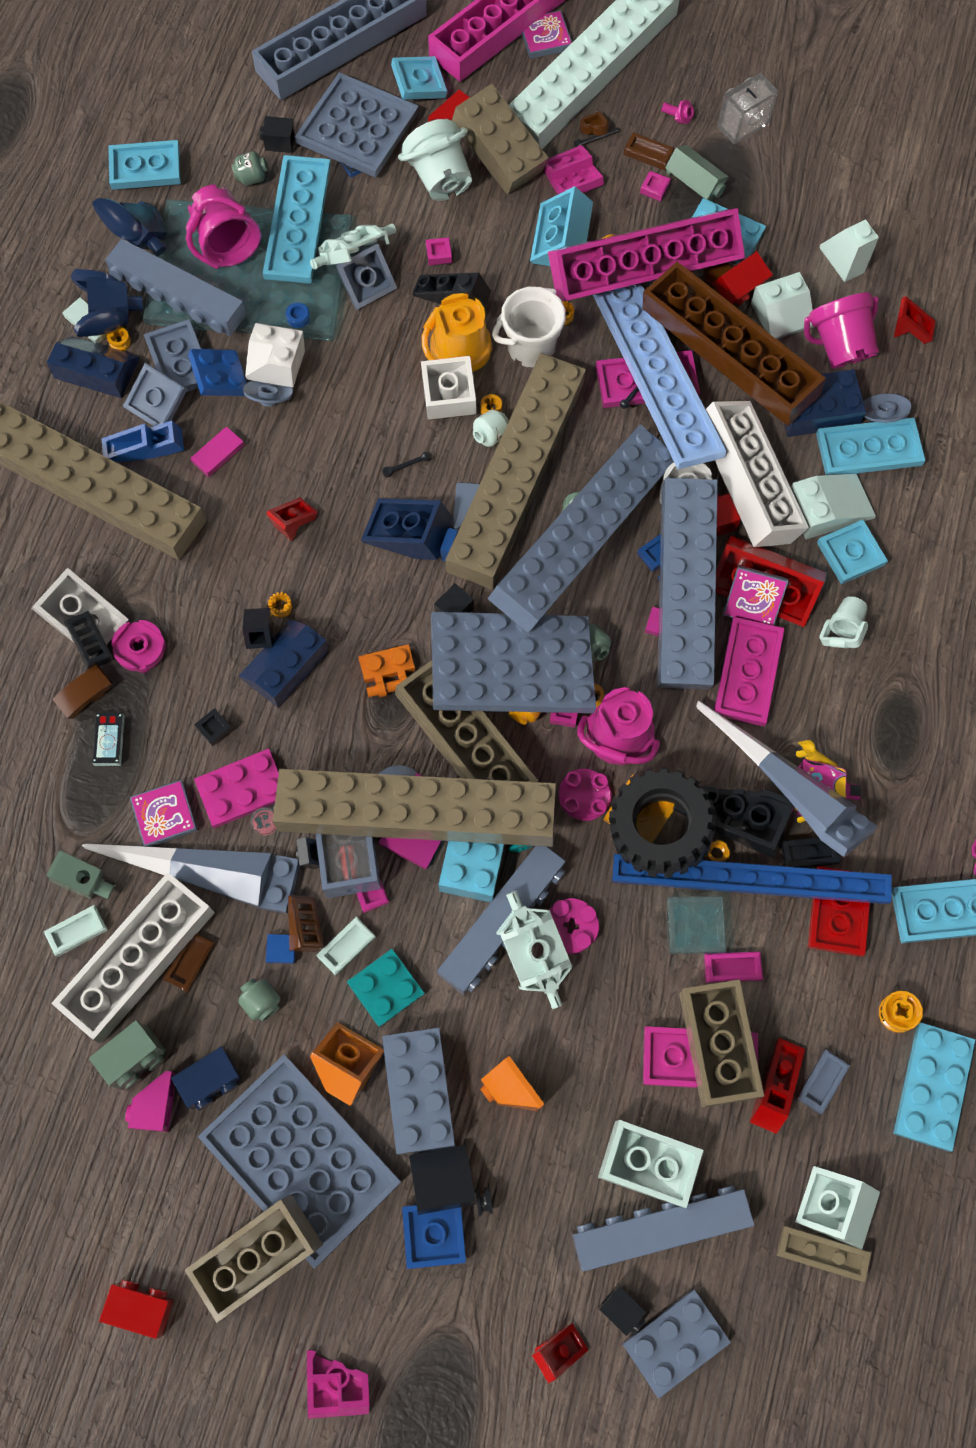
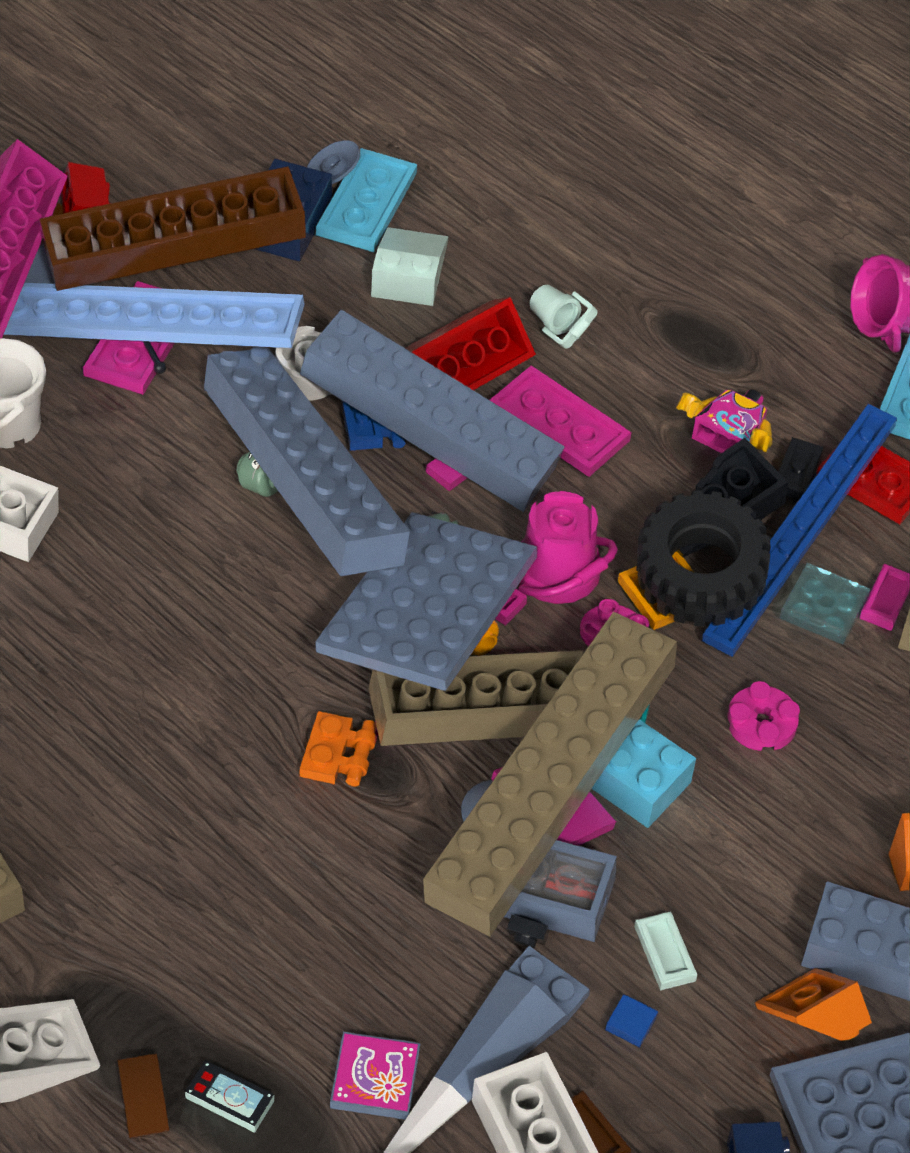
camera: 65 degrees left, 20 degrees down
(101, 659) = (90, 1064): black slope -> none
(136, 632) = (126, 1022): dark pink plate -> none
(213, 727) = (293, 964): black plate -> none
(239, 788) = (393, 973): dark pink plate -> none
(257, 628) = (194, 850): black brick -> none
(259, 999) = (689, 1064): sand green head -> none
(263, 821) = (453, 967): clear light blue tile -> none
(272, 602) = (171, 811): light orange bush -> none
(285, 665) = (254, 847): dark blue slope -> none
(290, 516) = (65, 754): red slope -> none
(296, 933) = (620, 978): reddish brown slope -> none
(372, 899) = (621, 898): dark pink tile -> none
(385, 988) = (740, 932): teal plate -> none
(387, 471) = (68, 632): black hinge -> none
(408, 527) = (163, 641): dark blue slope -> none
(447, 543) = (217, 611): blue tile -> none
(454, 600) = (297, 643): black brick -> none
(464, 496) = (174, 578): sand blue tile -> none
(481, 942) = (723, 777): sand blue brick -> none
(489, 427) = (93, 499): light aqua head -> none
(490, 399) = (68, 488): light orange bush -> none
(515, 471) = (170, 505): dark tan brick -> none
(519, 933) = (756, 744): light aqua plate -> none
(755, 476) = (381, 302): white brick -> none
(755, 595) = (480, 363): tile -> none
(783, 305) = (142, 173): light aqua slope -> none
(824, 810) = (763, 418): sand blue plate -> none
(845, 328) = (223, 140): dark pink piece -> none
(851, 250) = (124, 93): light aqua slope -> none
(852, 551) = (478, 272): medium azure plate -> none
(914, 320) = (245, 94): red slope -> none

